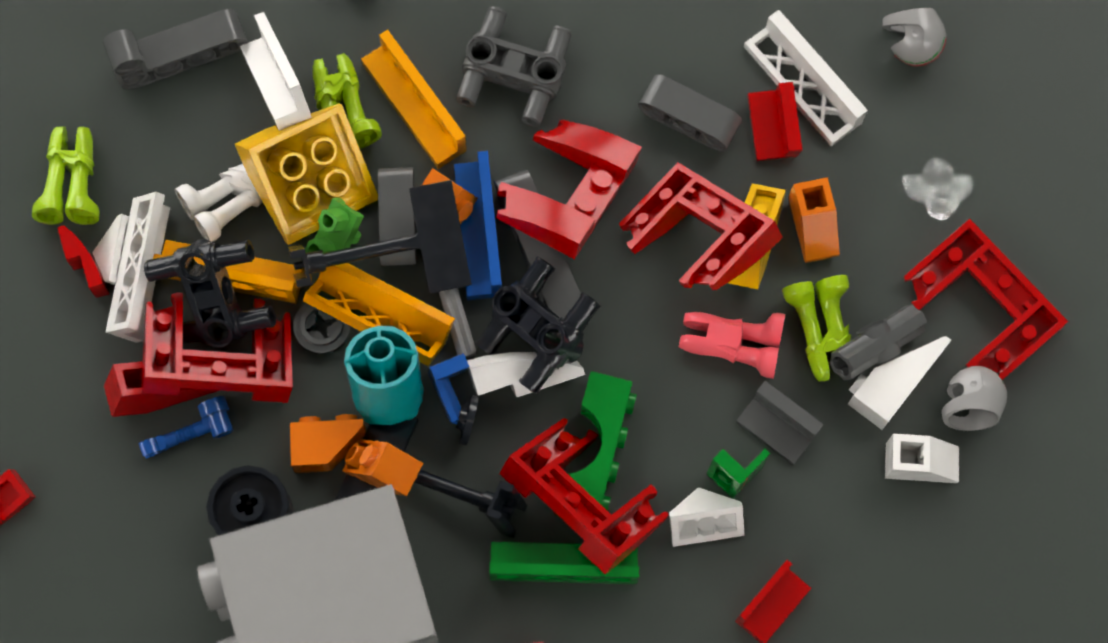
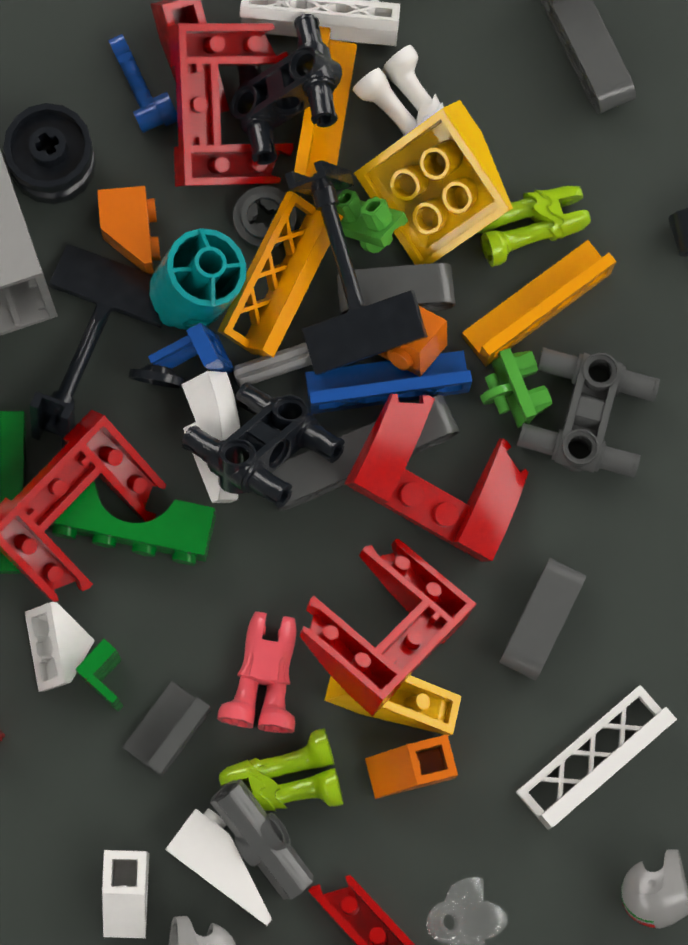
camera: 85 degrees right, 5 degrees up
(275, 77) = (547, 140): white fence -> none
(382, 465) = (98, 286): orange slope -> none
(492, 125) = (509, 390): none -> bright green hips
(775, 123) = (535, 719): red panel -> none

